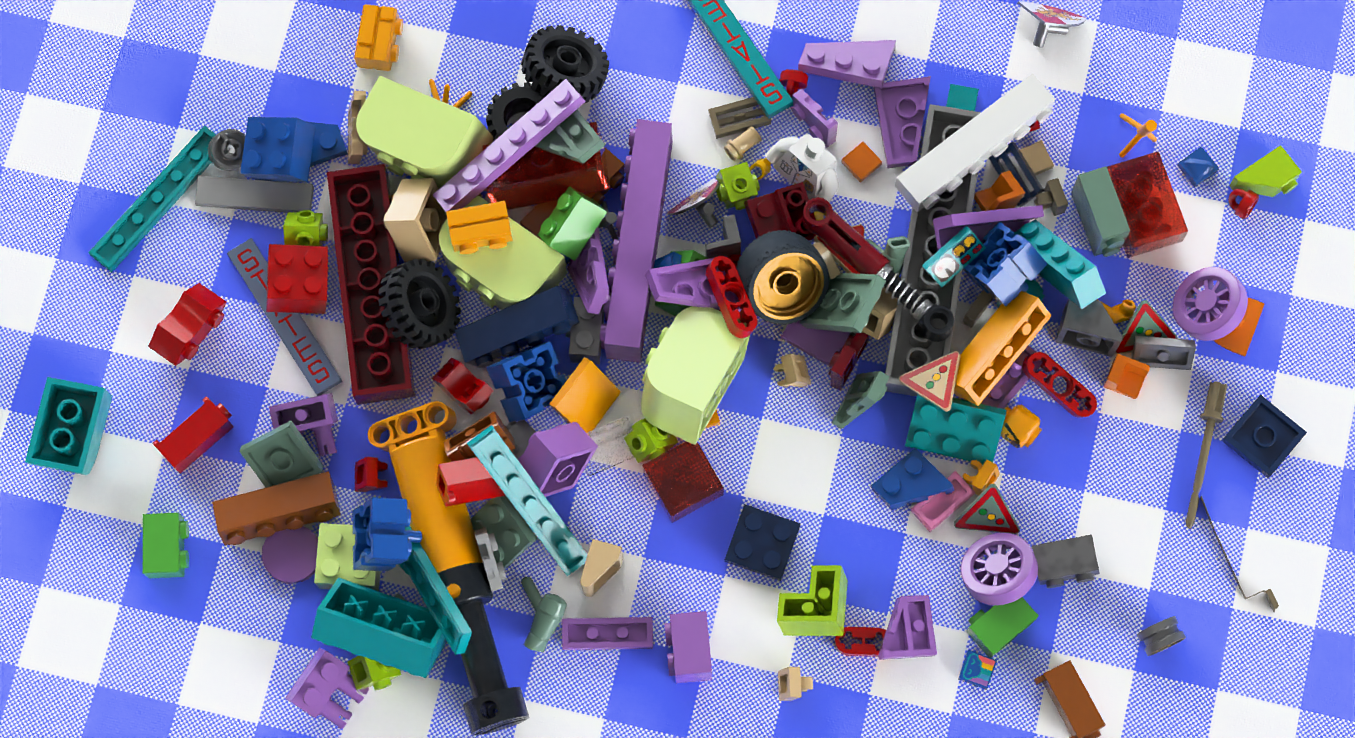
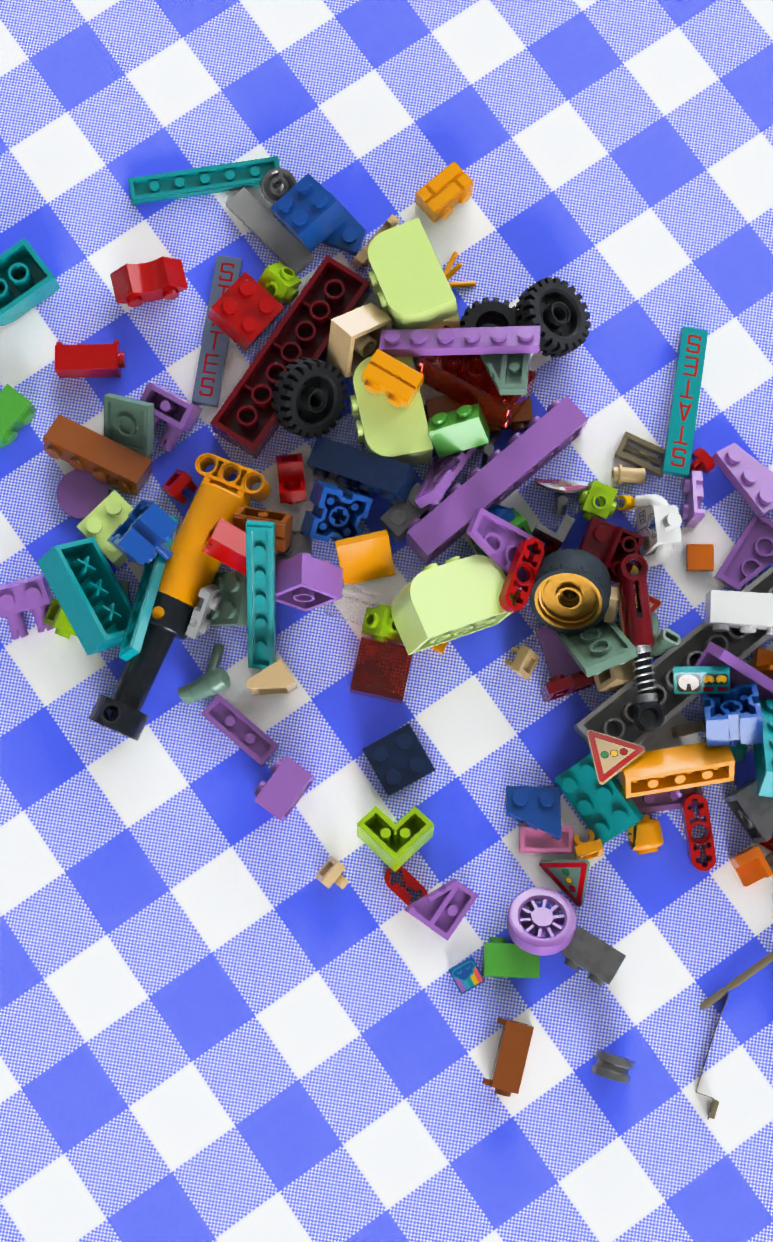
camera: 35 degrees right, 5 degrees up
(862, 394) = (554, 719): sand green wing -> none

